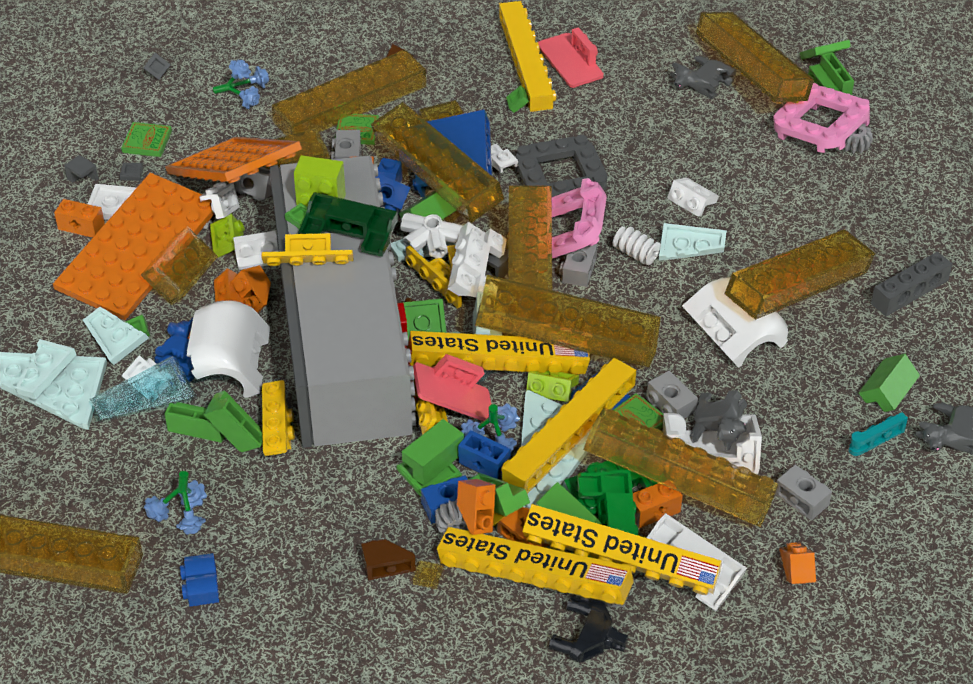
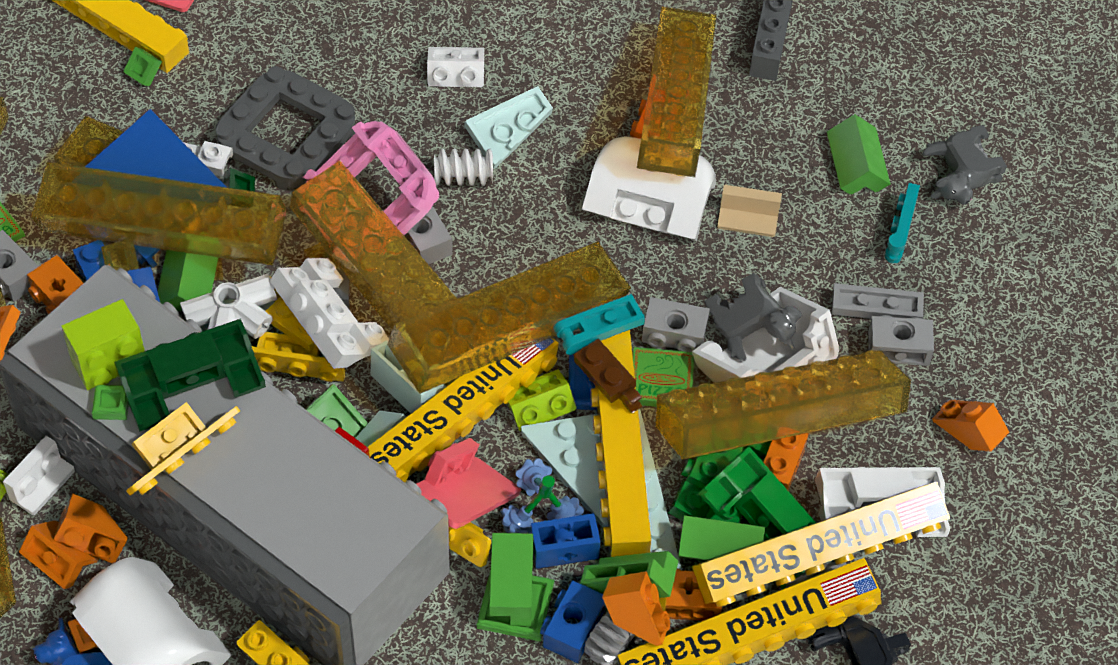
camera: 45 degrees left, 10 degrees up
(399, 172) = (120, 255): none -> clear yellow tile
(506, 179) = (239, 180): none -> dark green plate
(592, 385) = (608, 375): none -> reddish brown plate
(614, 357) = (599, 323): none -> teal plate
(787, 369) = (749, 210): none -> tan panel
(804, 457) = (873, 301): none -> light grey plate

